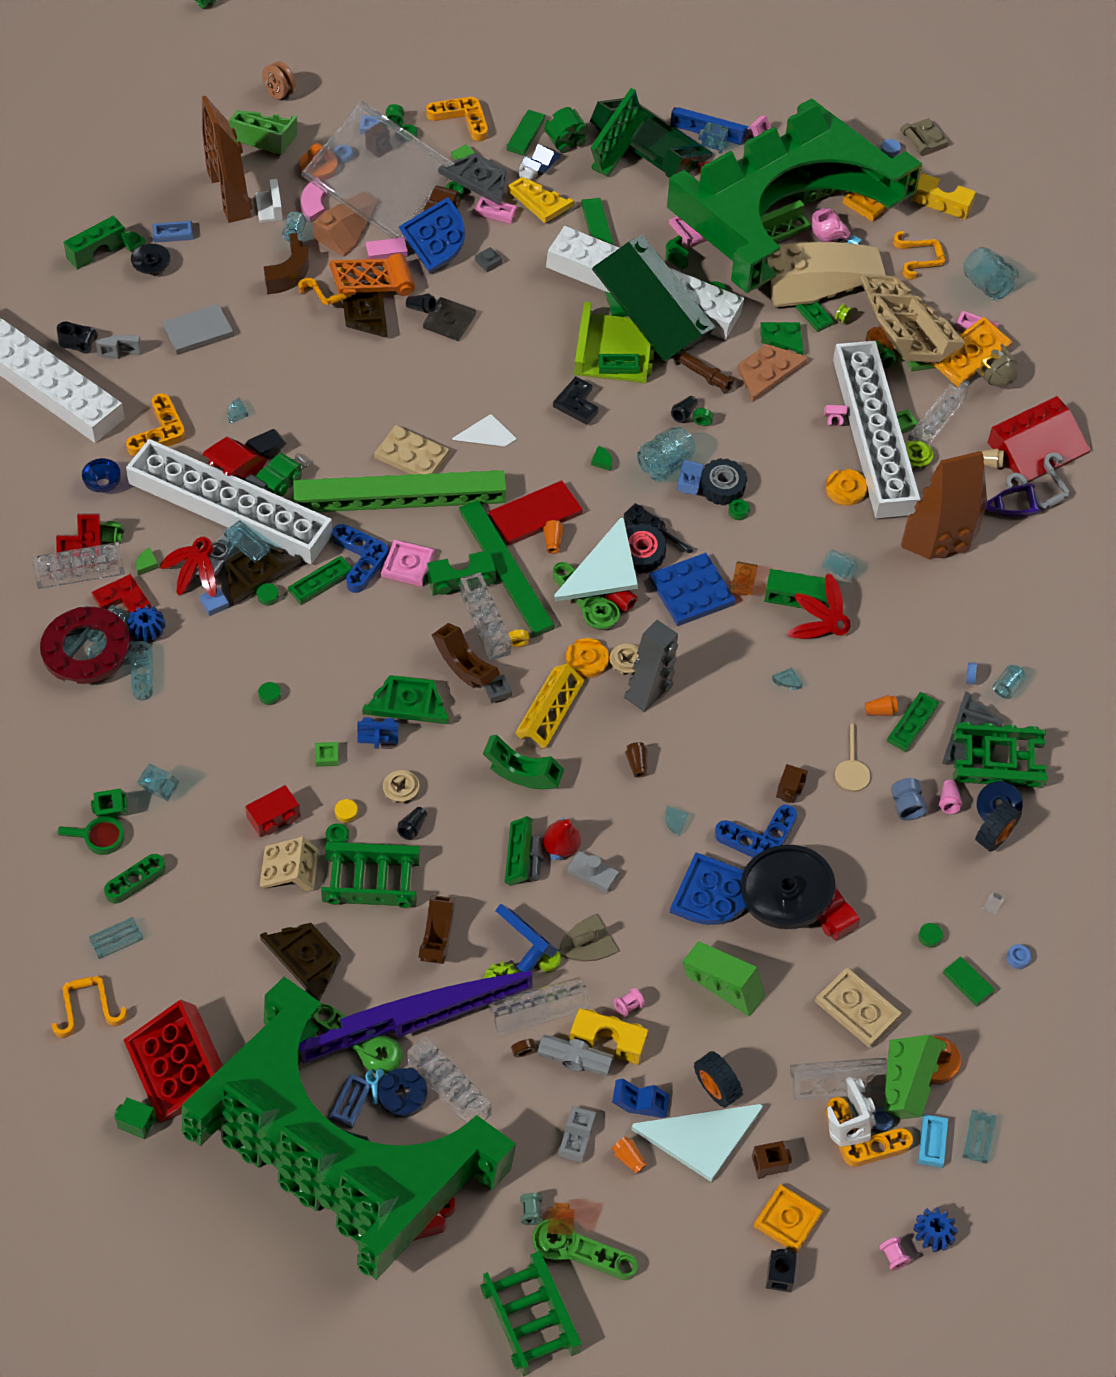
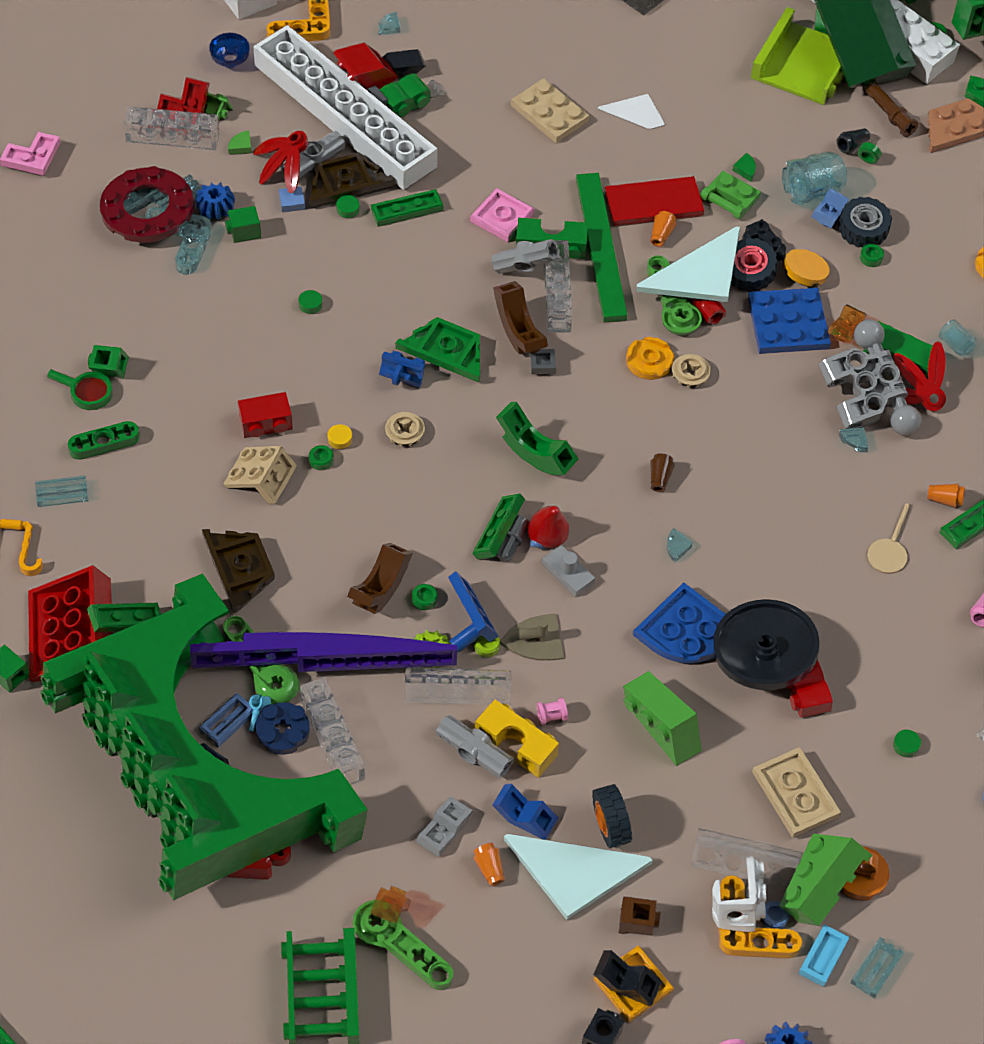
camera: 20 degrees right, 0 degrees up
(121, 591) = (204, 165): red plate -> none
(158, 782) = (162, 353): clear light blue brick -> none
(181, 638) = (243, 224): none -> green brick
(226, 1037) = (120, 616): none -> green tile
(247, 541) = (345, 148): clear light blue tile -> none
(326, 754) = (343, 376): bright green tile -> none
(366, 552) = (462, 197): blue beam -> none
(375, 854) = (338, 483): green fence -> none
(400, 491) = (523, 143): bright green brick -> none
(412, 823) = (399, 468): black cone -> none
(448, 597) = (525, 256): none -> light grey piece
(478, 934) = (424, 597): none -> green tile
(519, 638) = (584, 318): yellow tile -> none
(523, 1048) = (423, 722): reddish brown tile -> none
(531, 1209) = (365, 884): sand green bush -> none
(543, 703) = (585, 387): yellow fence -> none
(573, 402) = (737, 103): black plate -> none
(601, 484) = (730, 189): none -> bright green plate
(614, 364) = (797, 77): green tile -> none
(653, 666) = (709, 380): dark grey wedge -> none
(689, 537) = (806, 267): none -> light orange tile
(765, 841) = (766, 592): blue beam -> none
(781, 655) = (855, 412): none -> light grey connector
(788, 1217) = (630, 981): none -> black slope
(791, 783) = (815, 543): reddish brown brick -> none
(908, 799) = (937, 596): sand blue wheel -> none
(968, 981) = (930, 803): green tile -> none

